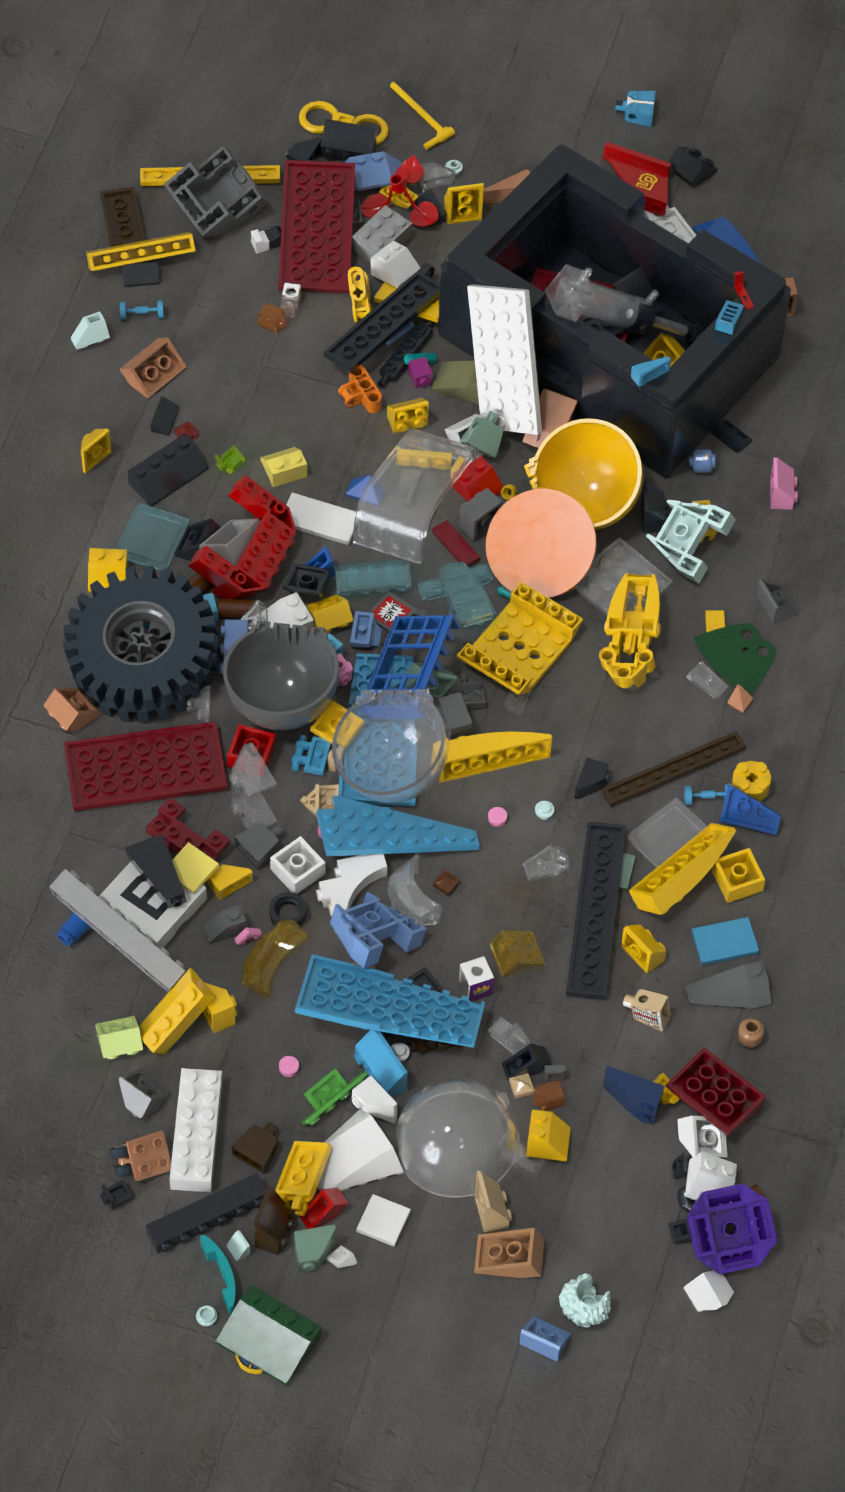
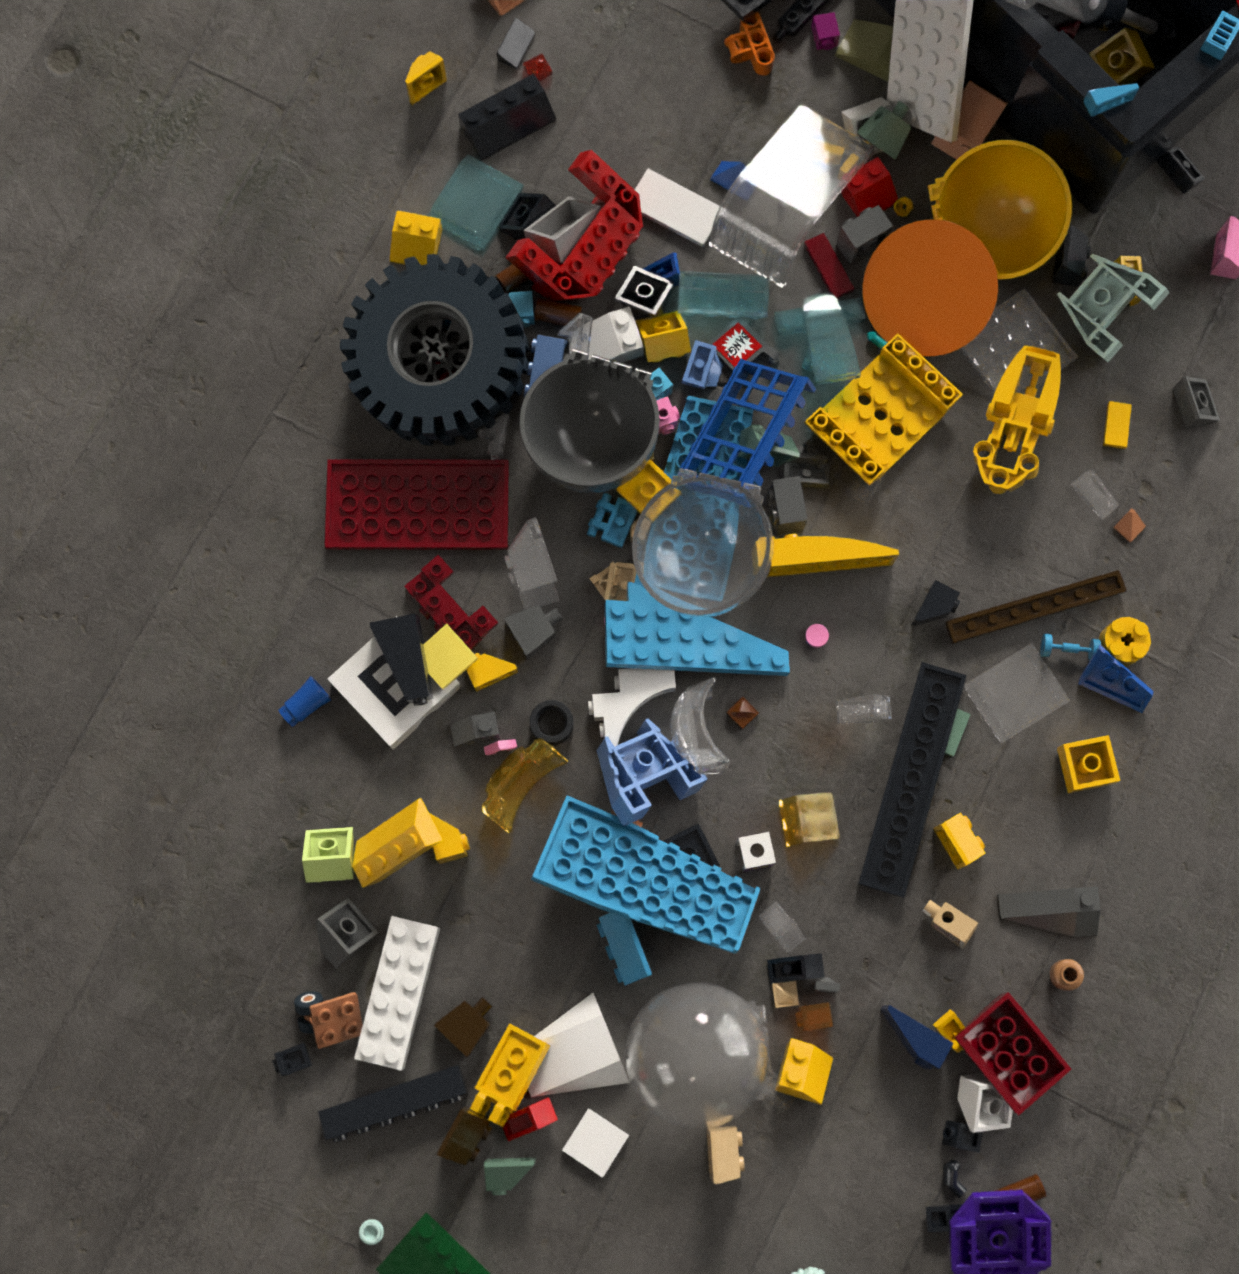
camera: 10 degrees right, 20 degrees up
(70, 708) = (343, 416): nougat slope -> none
(116, 930) = (345, 730): light grey brick -> none
(211, 1253) = (390, 1151): teal slope -> none
(230, 460) = (582, 114): clear neon green bracket -> none
(238, 1246) = (422, 1149): light aqua slope -> none
(262, 740) = (545, 502): red brick -> none
(285, 466) = (645, 131): light yellow slope -> none
(288, 1066) = (519, 923): bright pink tile -> none
(297, 865) = (571, 667): white brick -> none
(327, 1091) = (559, 969): bright green bracket -> none
(341, 1257) = (538, 1183): white slope -> none
(374, 1100) = (606, 995): white slope -> none
(401, 1051) = (649, 932): white plate -> none
(408, 415) = (801, 86): yellow slope -> none
(430, 357) = (840, 13): teal axle -> none
(510, 1253) = (733, 1215): medium nougat slope -> none
(544, 809) = (873, 636): light aqua plate -> none
(681, 870) = (1024, 748): yellow slope -> none
(702, 461) = (1141, 200): medium blue head -> none
(708, 1173) = (984, 1163): white slope -> none
(724, 653) = (1121, 460): dark green piece -> none
(725, 941) = (1056, 843): dark azure tile -> none

